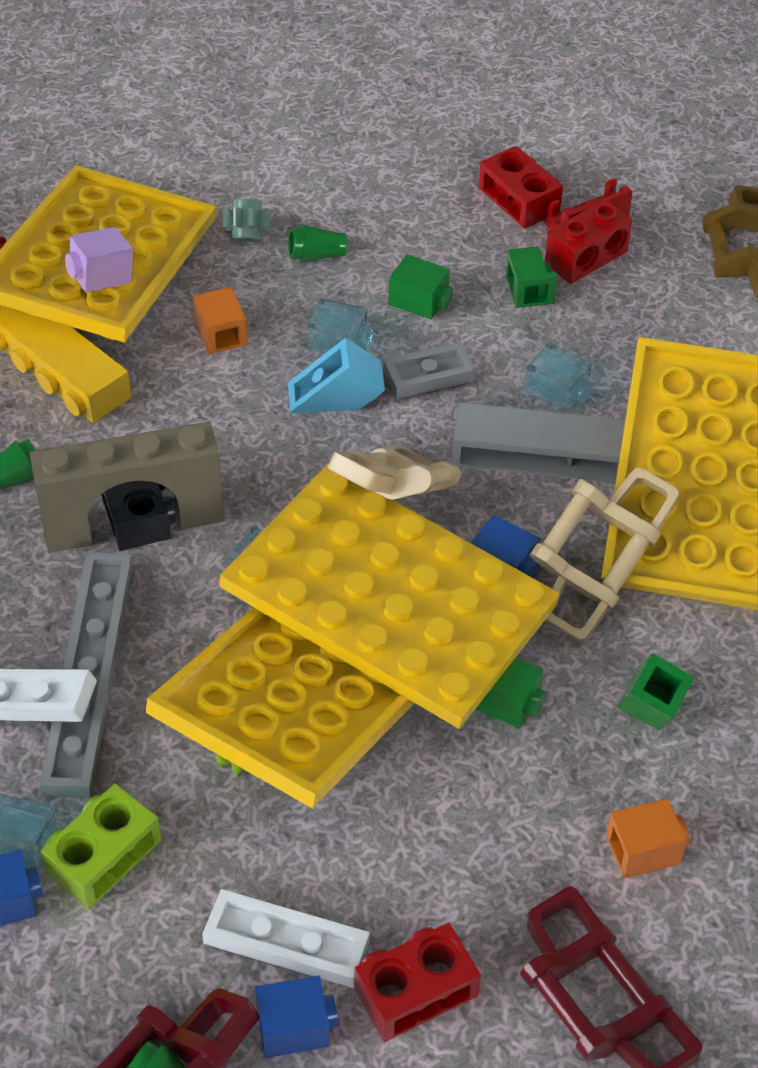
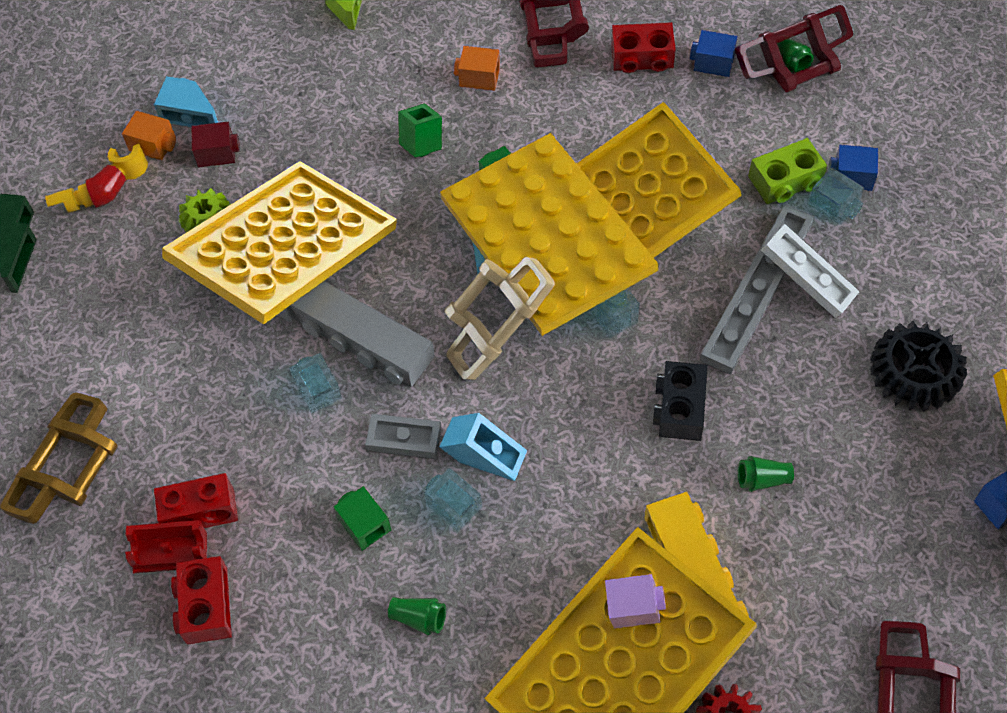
camera: 150 degrees left, 10 degrees up
(76, 474) = (727, 376): dark tan arch -> none
(220, 320) = (543, 552): orange brick -> none
(246, 220) = (467, 662): sand green gear -> none
(286, 937) = (701, 94): white plate -> none
(508, 544) = (447, 259): blue brick -> none
(530, 278) = (267, 492): green brick -> none
(609, 510) = (378, 235): tan bar -> none

